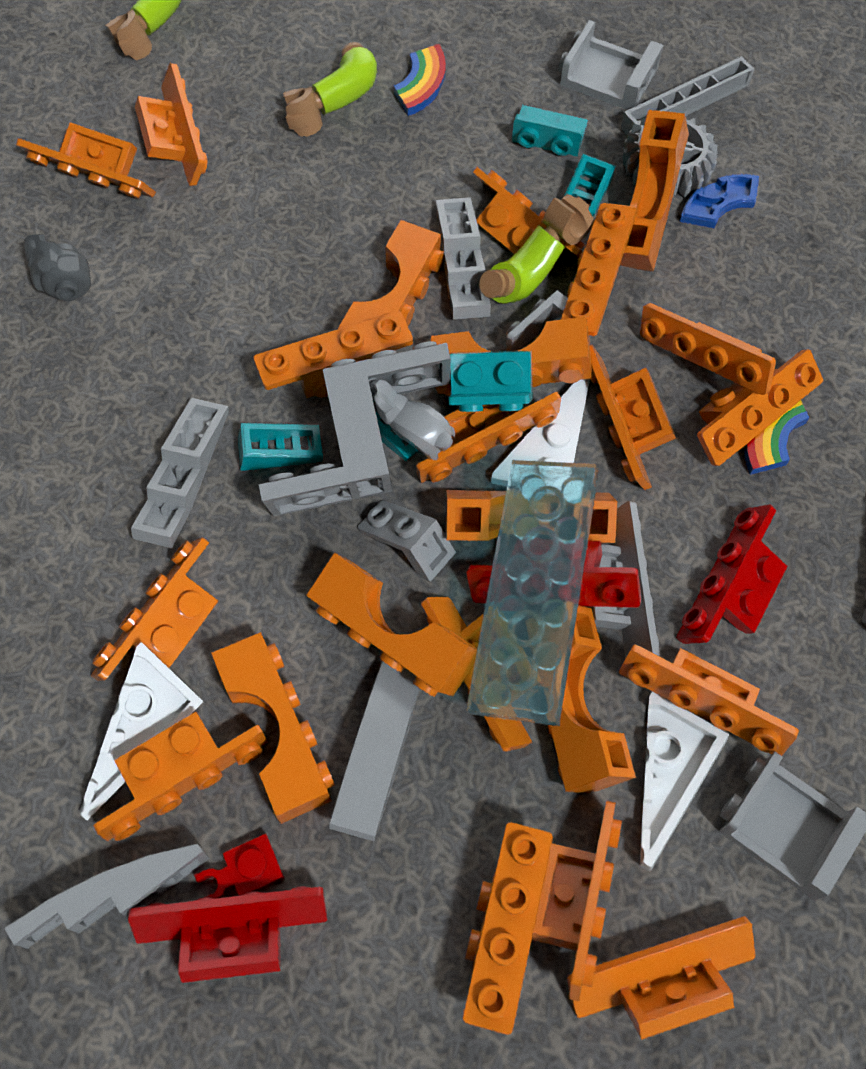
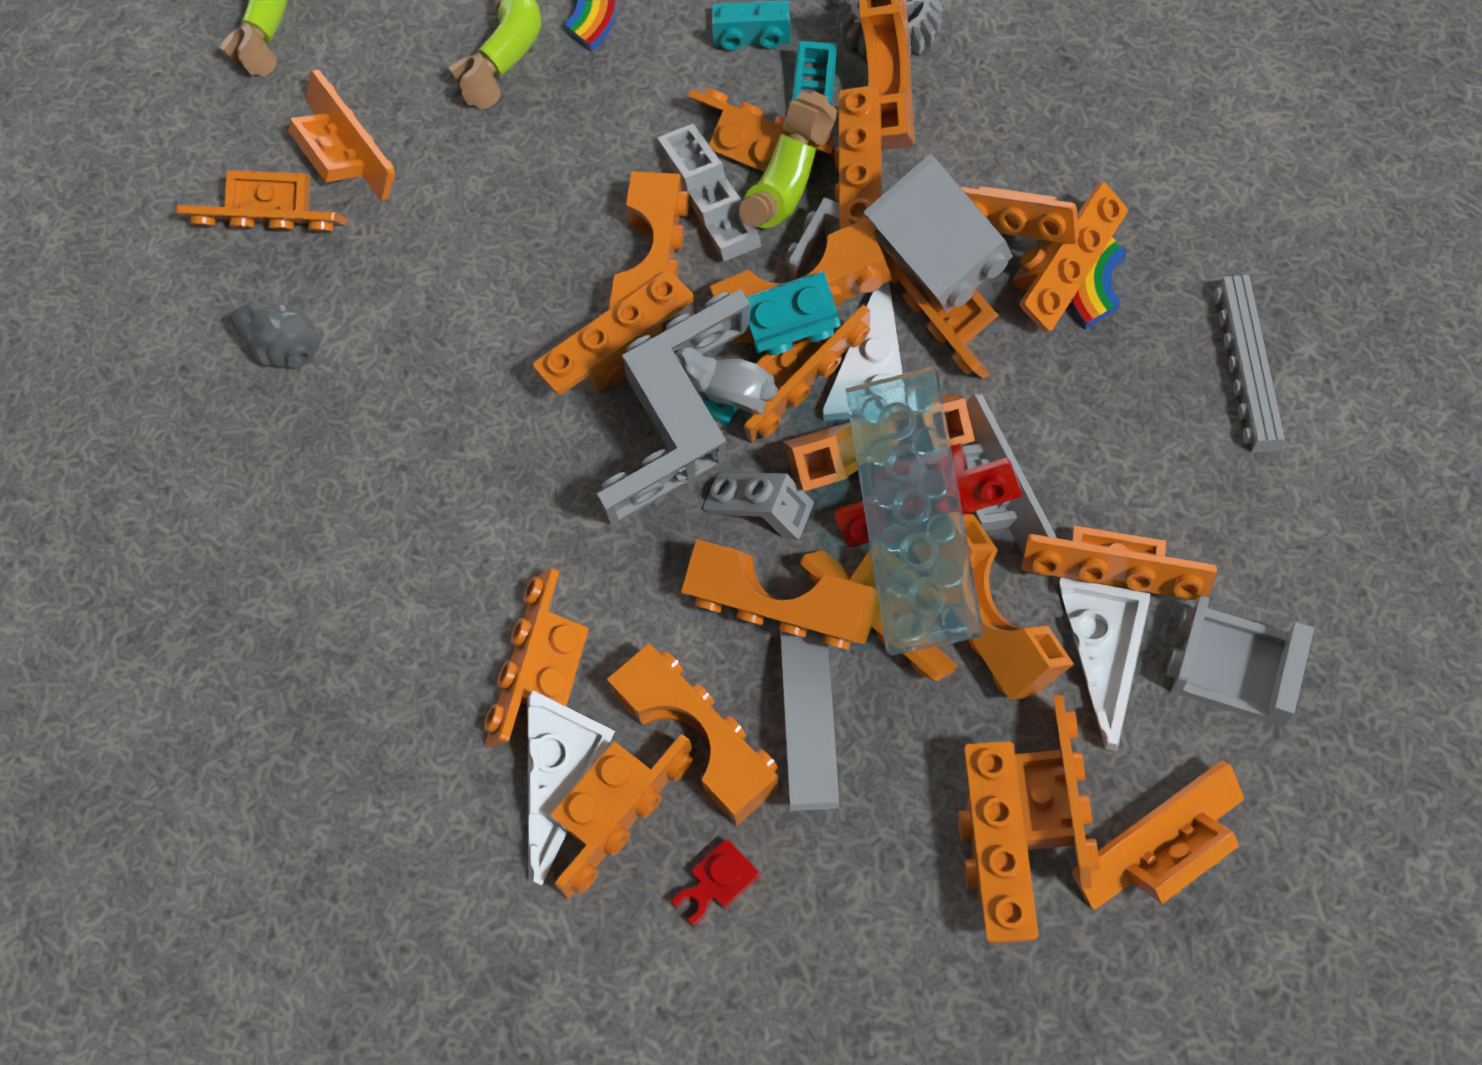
camera: 10 degrees left, 0 degrees up
(122, 887) = (608, 932): light grey slope -> none
(180, 473) = (497, 510): light grey slope -> none
(228, 933) = (727, 941): red bracket -> none
(269, 458) = (578, 467): teal slope -> none
(644, 349) = (938, 234): none -> light grey slope
(714, 200) = (955, 46): blue tile -> none
(739, 581) = (1110, 441): red bracket -> none

